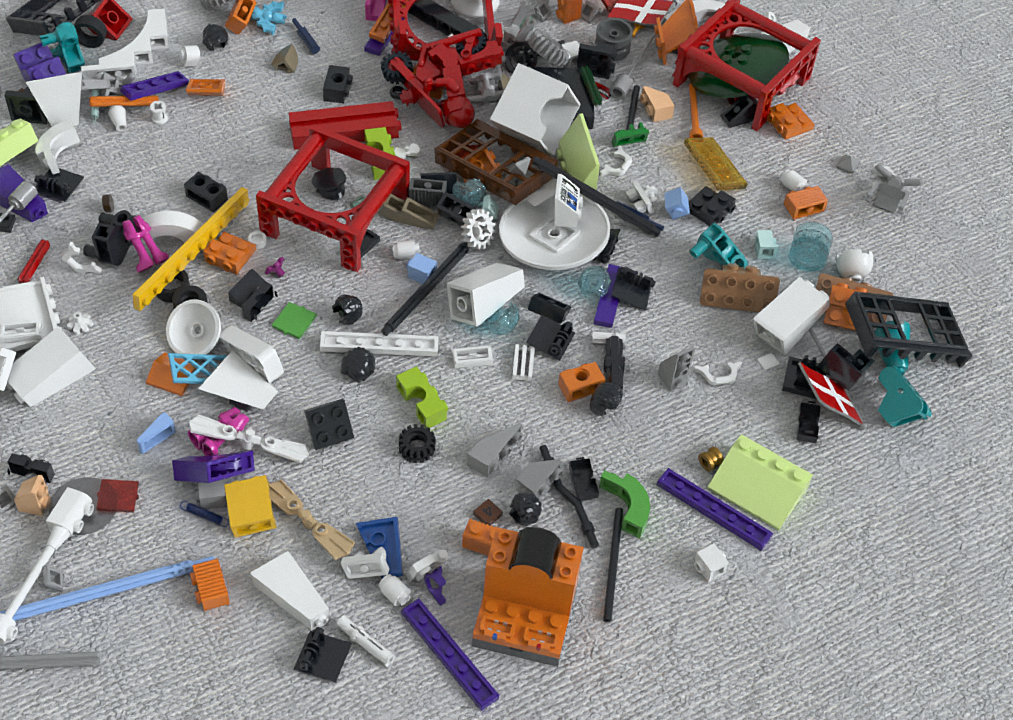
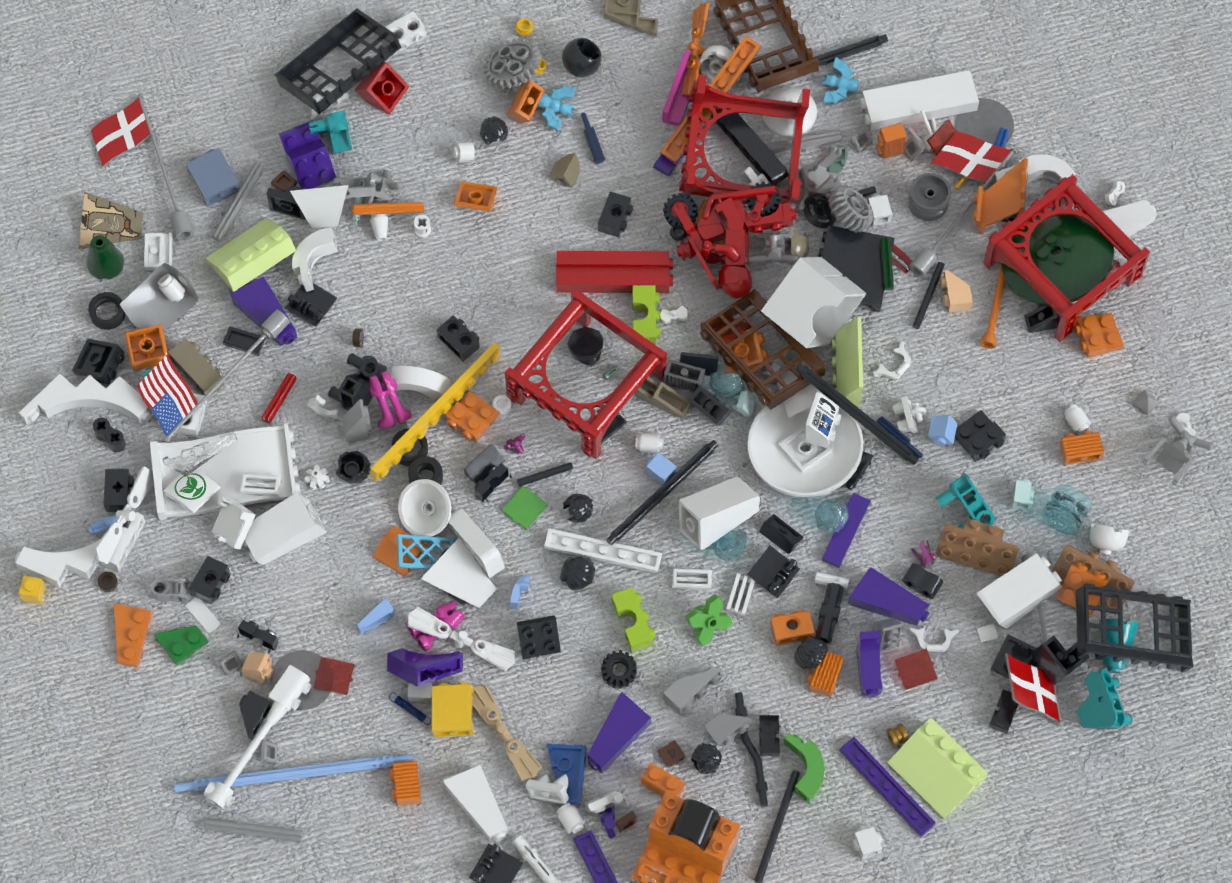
camera: 15 degrees right, 15 degrees up
(32, 539) = (254, 711): none -> black slope
(93, 23) = (361, 106): black tyre -> none
(113, 266) = (357, 423): none -> light grey slope
(115, 306) = (353, 467): none -> black hair
(138, 52) = (391, 153): white arch -> none
(154, 85) = (421, 190): dark purple tile -> none
(301, 385) = (521, 585): none -> light blue slope
(308, 290) = (544, 474): none -> black bar
(429, 499) = (619, 731): none -> dark purple slope
(454, 583) = (626, 821): none -> reddish brown tile
(478, 229) = (727, 424): white gear -> none
(498, 384) = (708, 618): none -> bright green plant
(520, 167) = (783, 370): light grey slope -> none
(598, 58) = (904, 228): black plate -> none
(625, 417) = (826, 675): none -> orange brick
(630, 136) = (907, 332): green plate -> none
(632, 287) = (869, 527): black hinge -> none
(662, 341) = (887, 598): none -> dark purple slope
(664, 395) = (869, 663): none -> dark purple arch
(690, 304) = (928, 559): none -> flat silver piece
(696, 325) = (922, 581): none -> black axle
(711, 400) = (915, 669): none -> clear red piece
(715, 163) = (998, 382): clear yellow tile -> none

